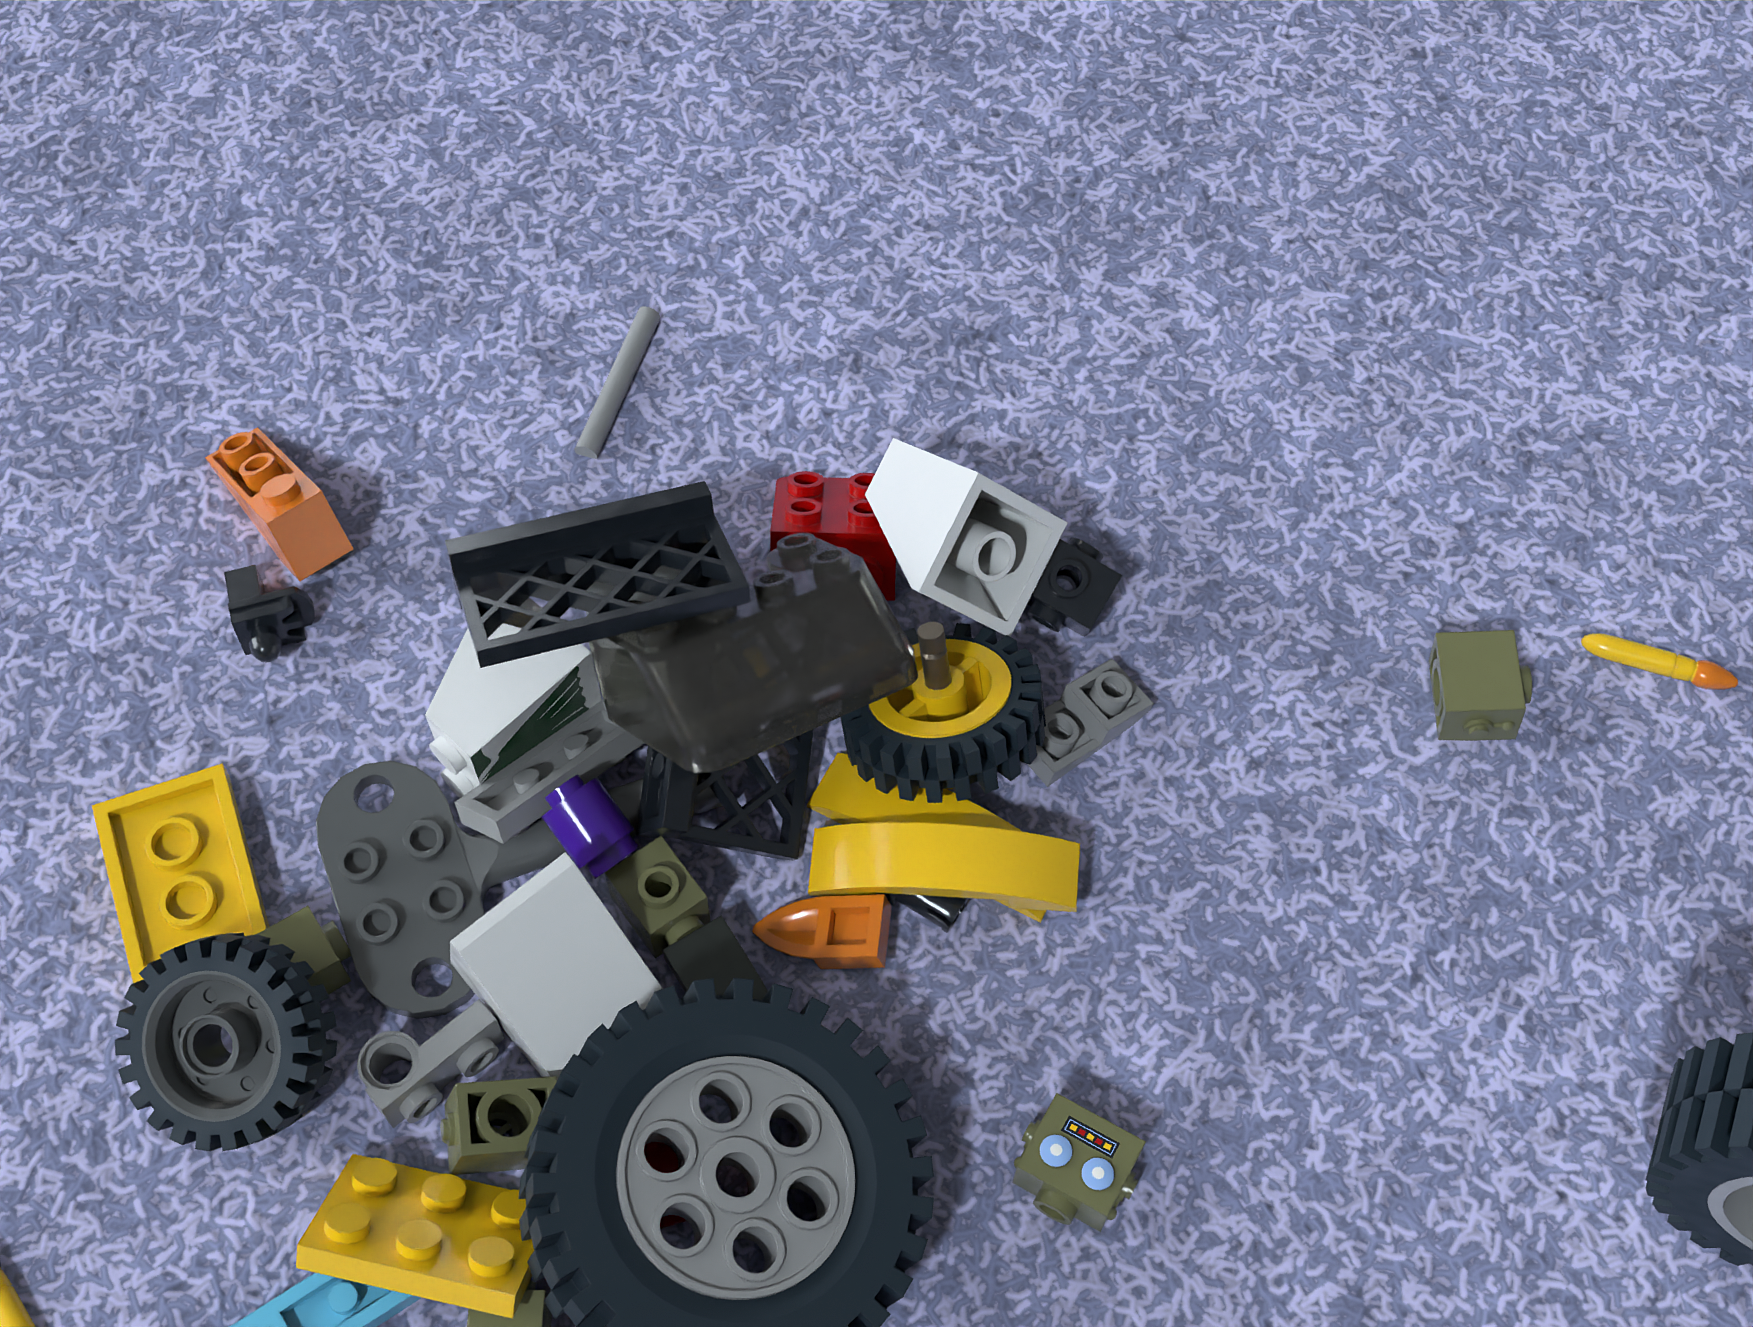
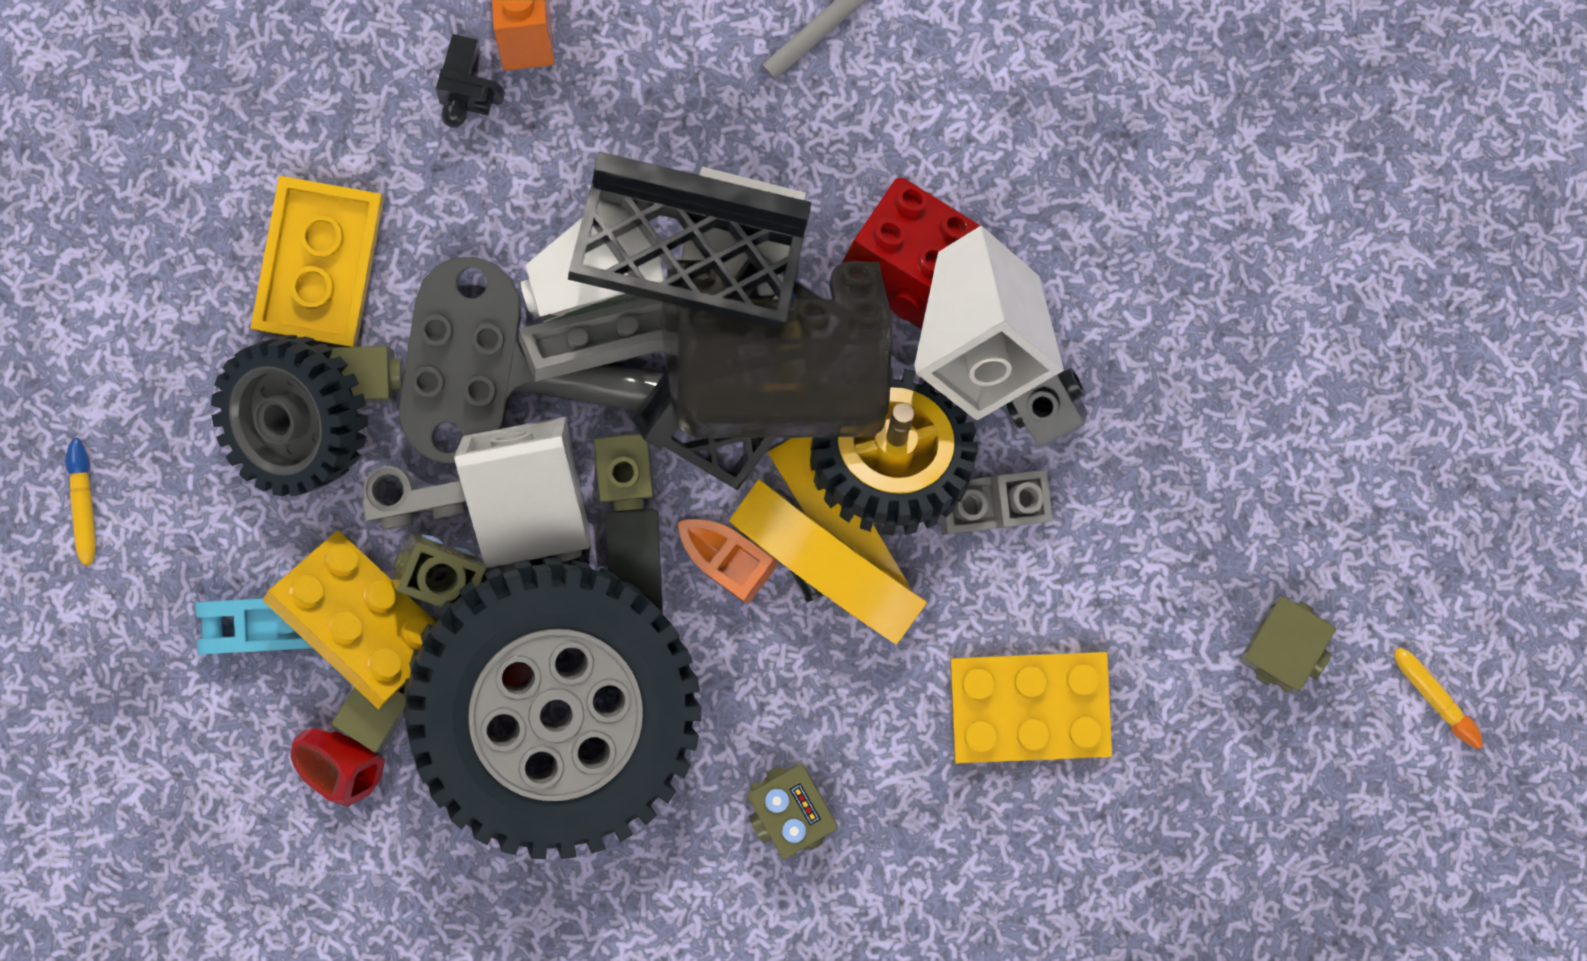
camera: 25 degrees right, 25 degrees up
(589, 825) = (600, 401): dark purple brick -> none
(1261, 905) = (1030, 707): none -> yellow plate

